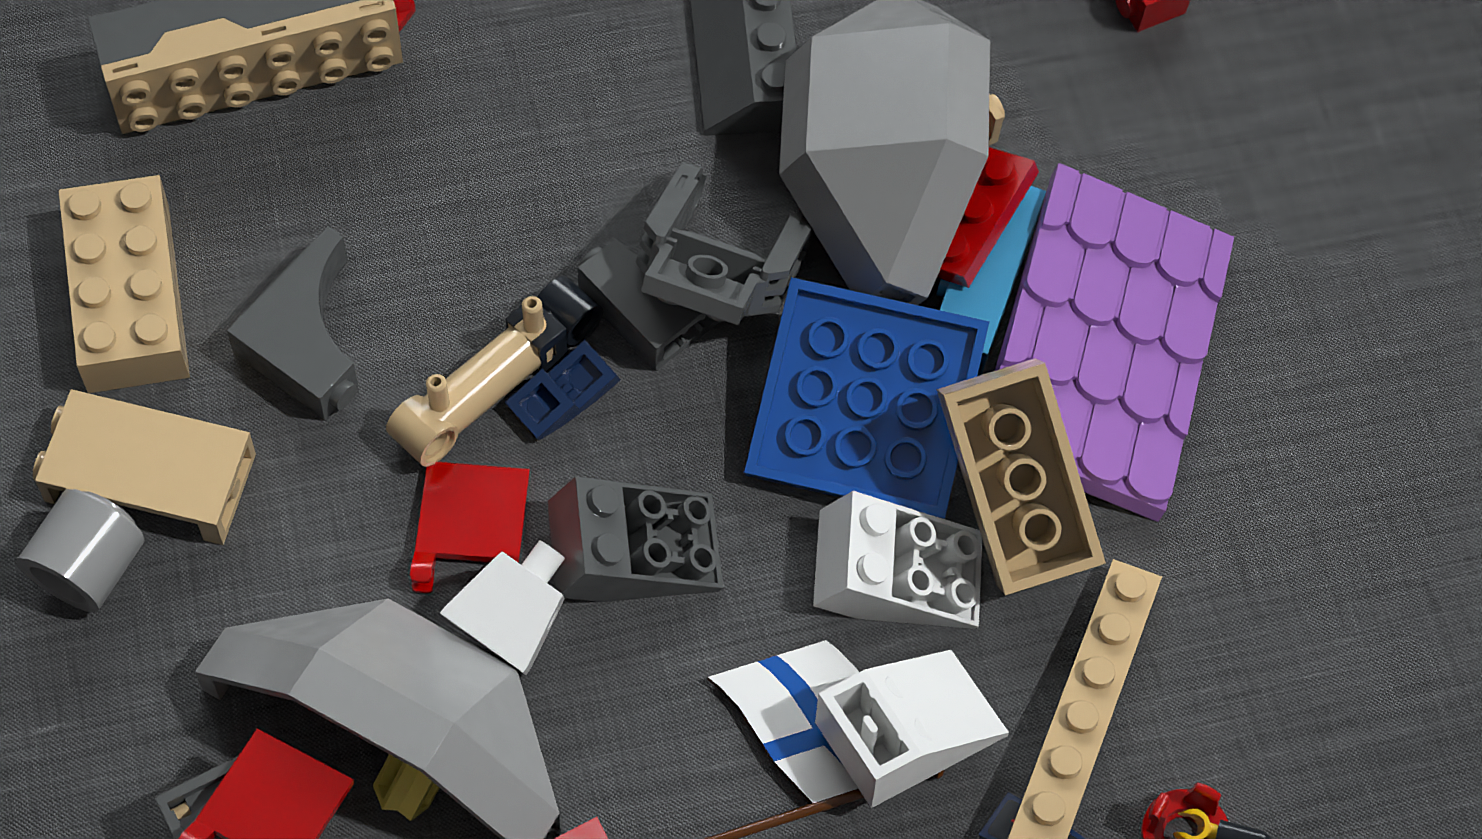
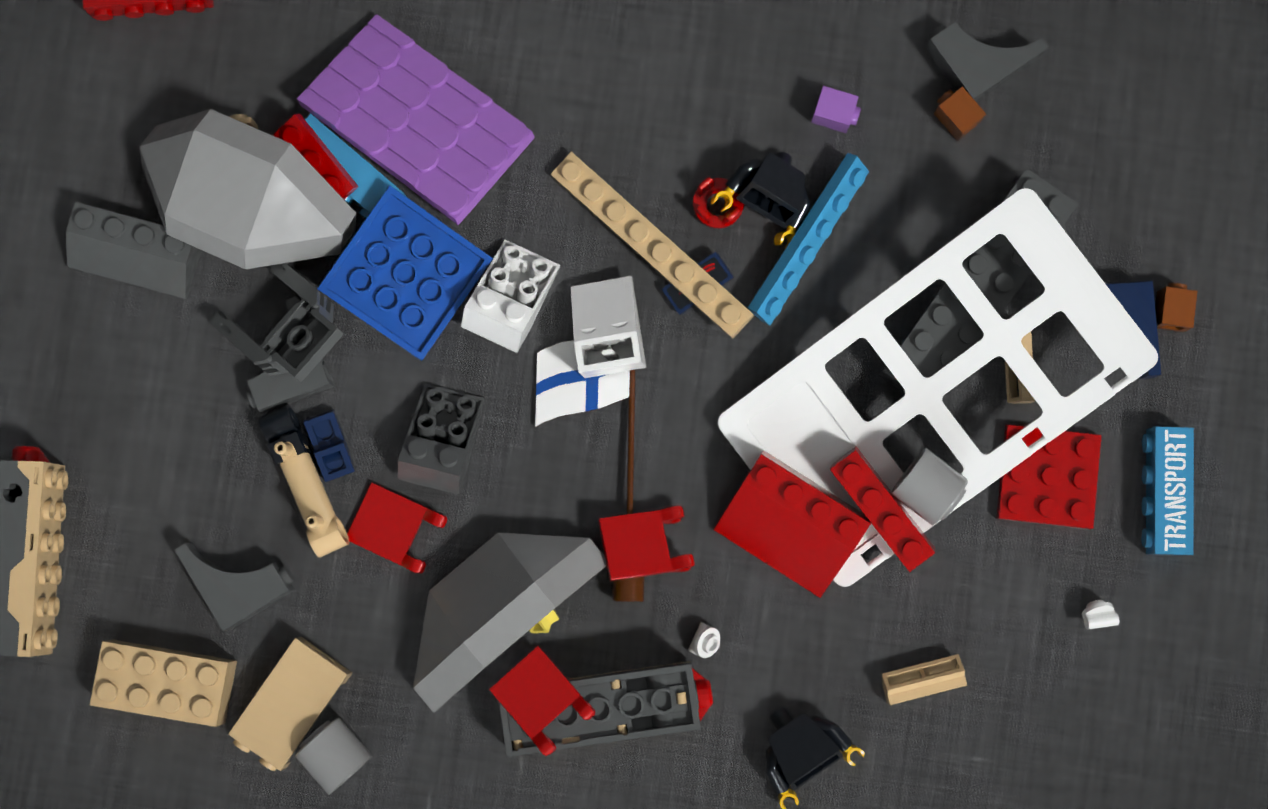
camera: 60 degrees left, 20 degrees up
(510, 605) = (459, 523): white torso -> none
(1021, 476) = (491, 207): tan brick -> none

